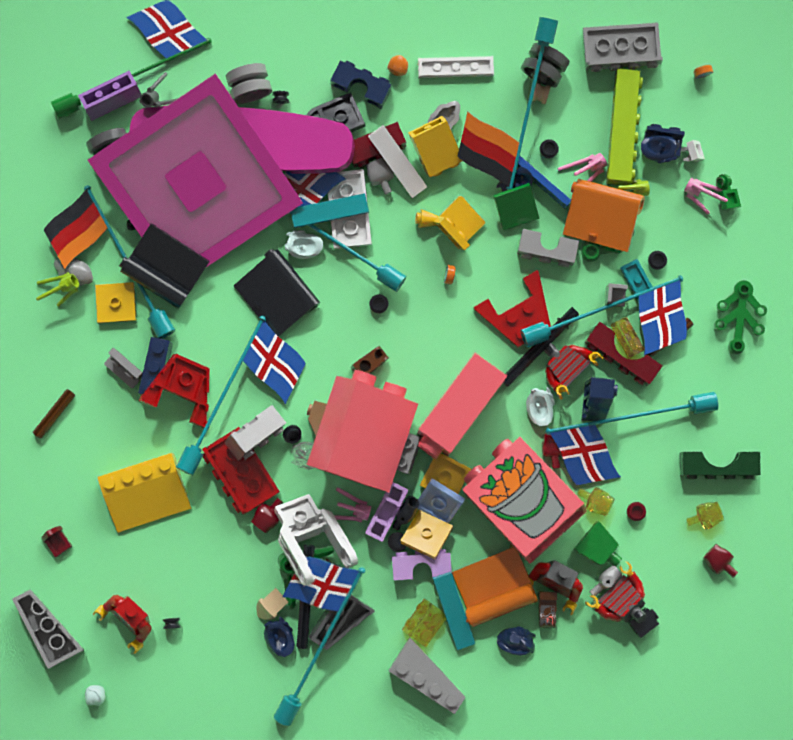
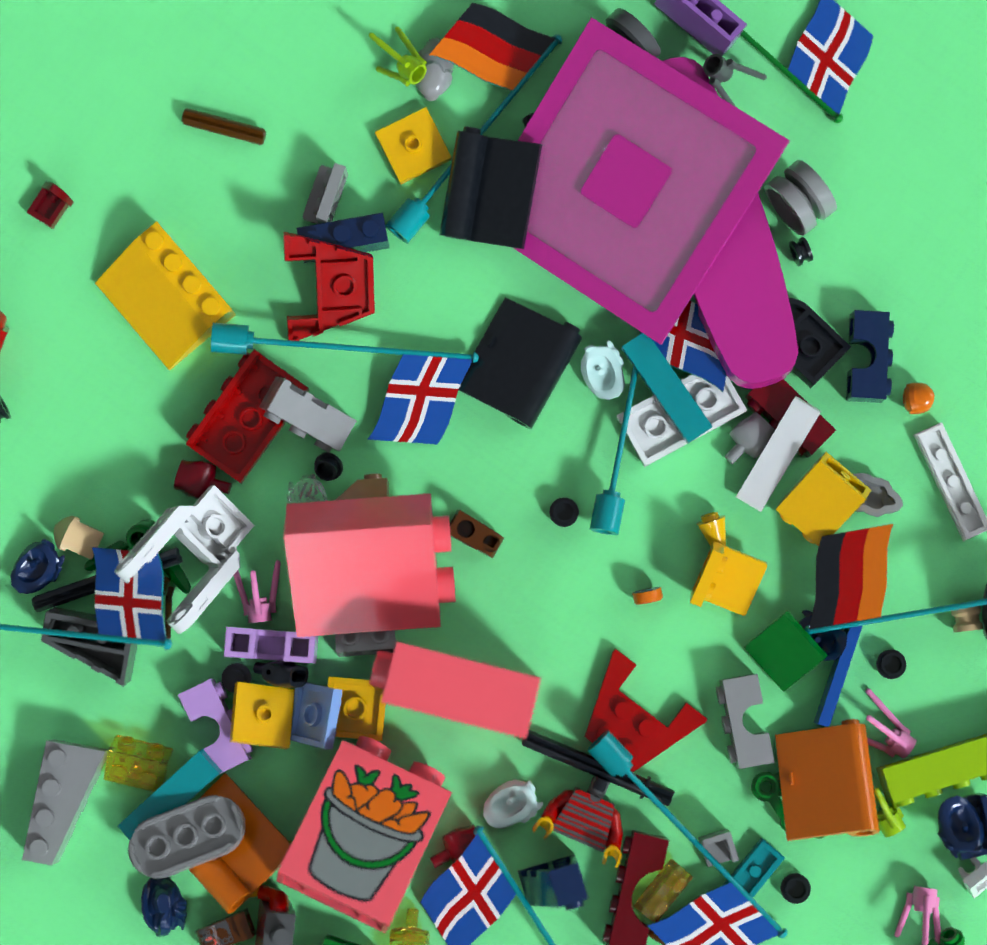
camera: 70 degrees right, 0 degrees up
(481, 607) = (186, 836): none -> light grey tile

